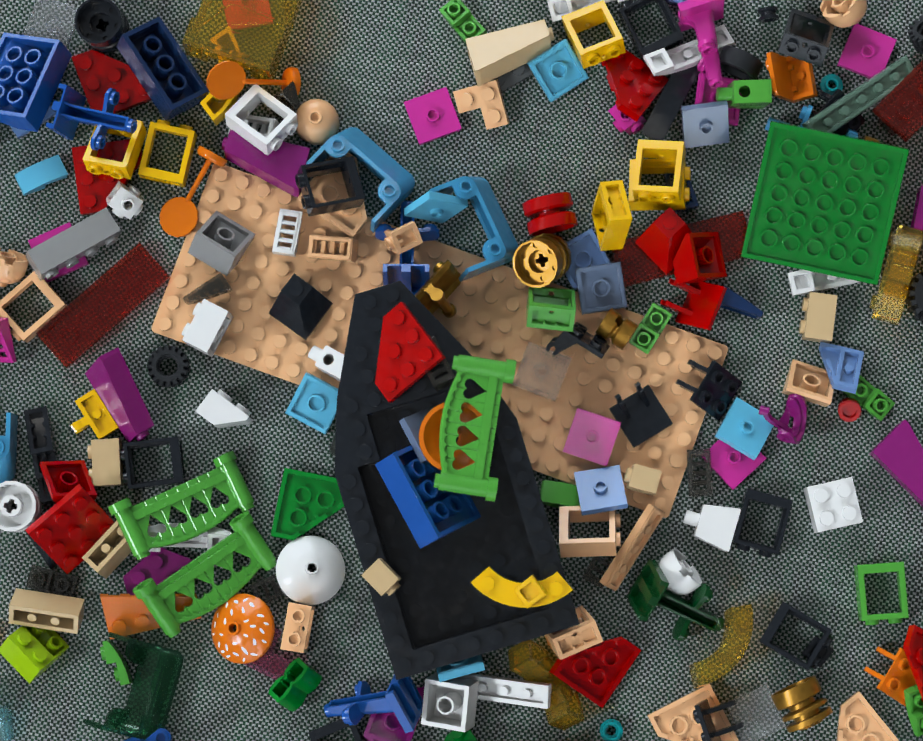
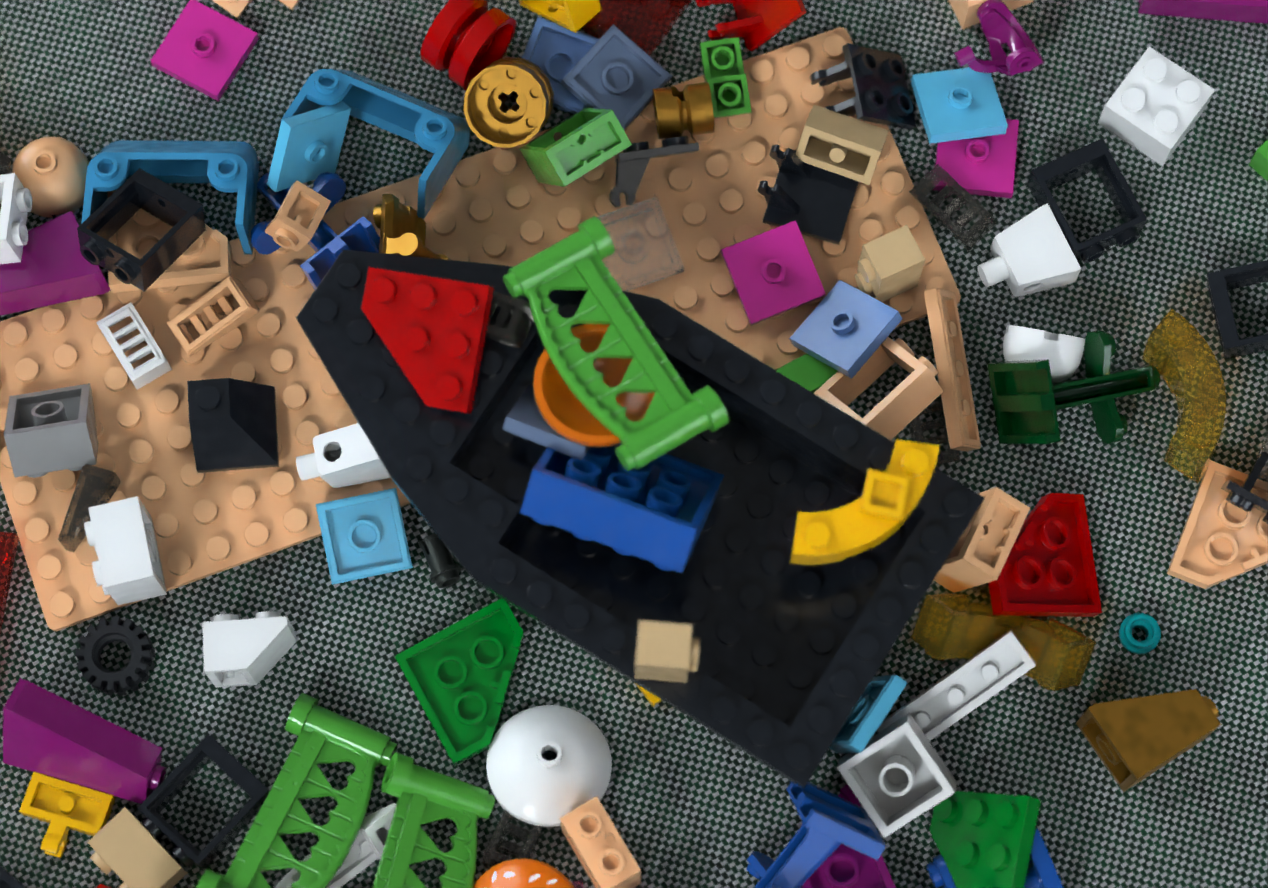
camera: 45 degrees left, 10 degrees down
(672, 405) = (841, 144): none -> tan brick

